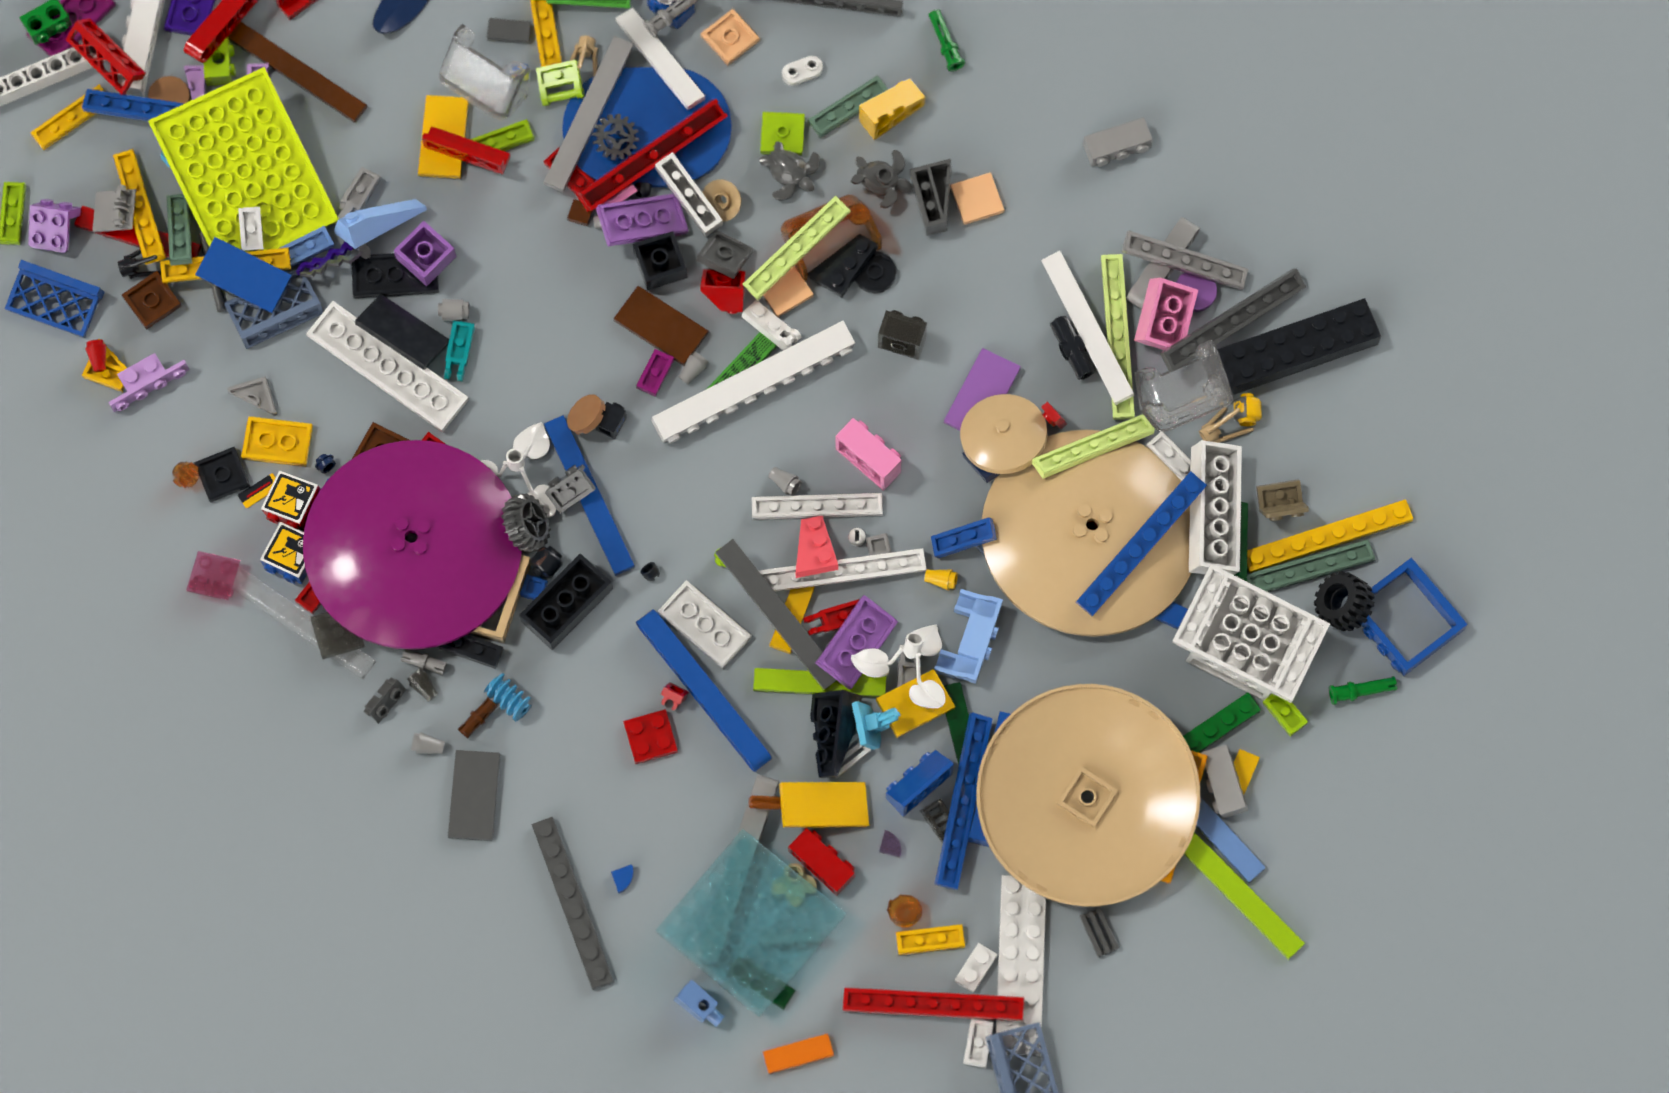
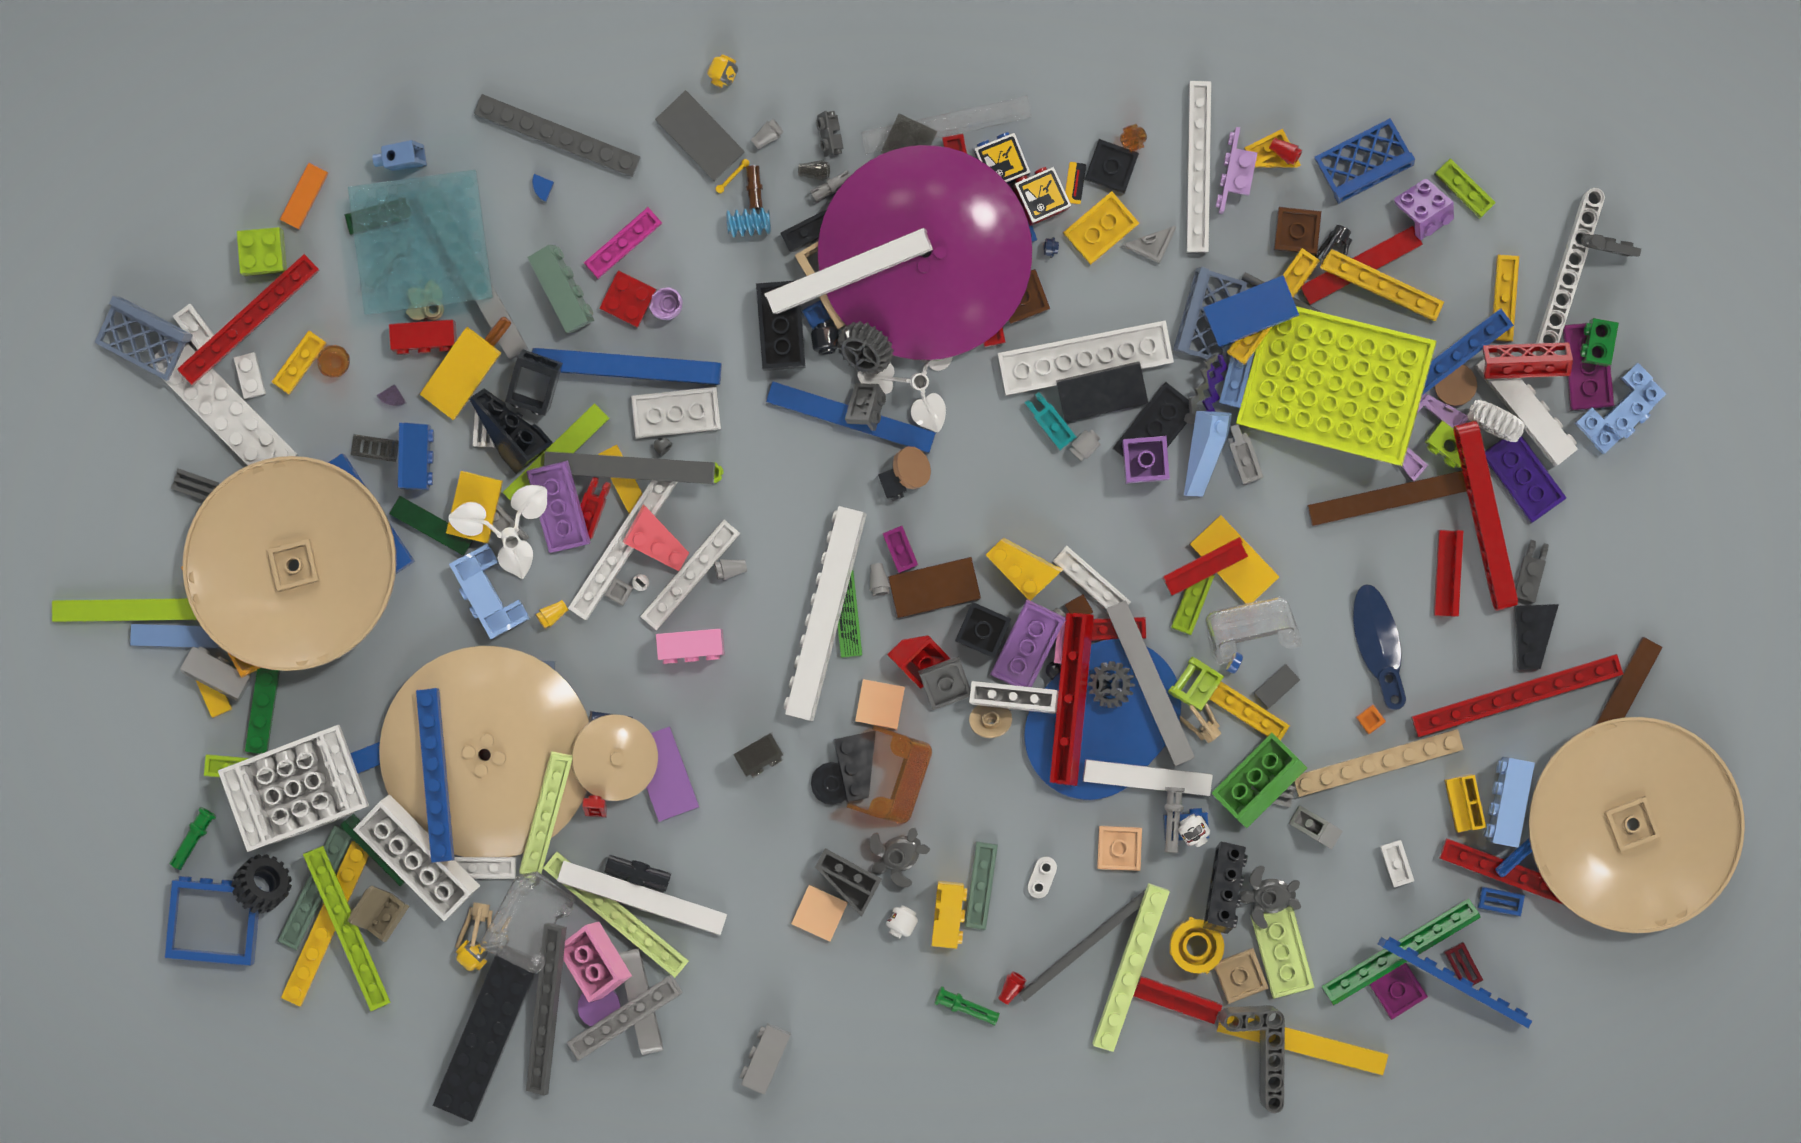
camera: 135 degrees right, 15 degrees up
(114, 210) = (1393, 262): light grey hinge -> none
(165, 410) = (1198, 166): none -> white plate
(170, 40) = (1496, 420): none -> white gear
(179, 230) = (1333, 295): sand green tile -> none
(213, 575) = (1035, 90): clear pink hinge -> none
(250, 229) = (1283, 348): white plate -> none
(407, 820) = (722, 71): none -> yellow head
(477, 575) = (849, 271): none -> white tile
(501, 744) = (744, 163): none -> yellow hinge
(552, 225) = (1088, 578): none -> white tile
(587, 272) = (1022, 567): none -> yellow wedge
(610, 779) = (623, 243): none -> dark pink tile
(627, 701) = (666, 304): none -> lavender hair
(650, 571) = (755, 408): black hinge -> none
(675, 694) = (642, 342): red tile -> none
(688, 789) = (561, 288): none -> sand green brick
(738, 611) = (662, 445): none -> dark grey hinge
(762, 748) = (538, 364): none -> black window
(770, 325) = (858, 667): white plate -> none
(784, 128) = (1004, 815): lime plate -> none
(790, 170) = (967, 793): dark grey animal -> none
(796, 247) = (893, 735): yellowish green tile -> none
(871, 724) = (485, 459): medium azure piece -> none
(871, 1043) = (261, 251): none -> lime brick
(899, 21) = (1012, 987): none -> red cone
(927, 134) = (902, 921): none -> white head
(963, 537) = (564, 655): blue plate -> none
(963, 802) = (371, 474): blue plate -> none
(1319, 508) = (348, 933): none -> lime plate

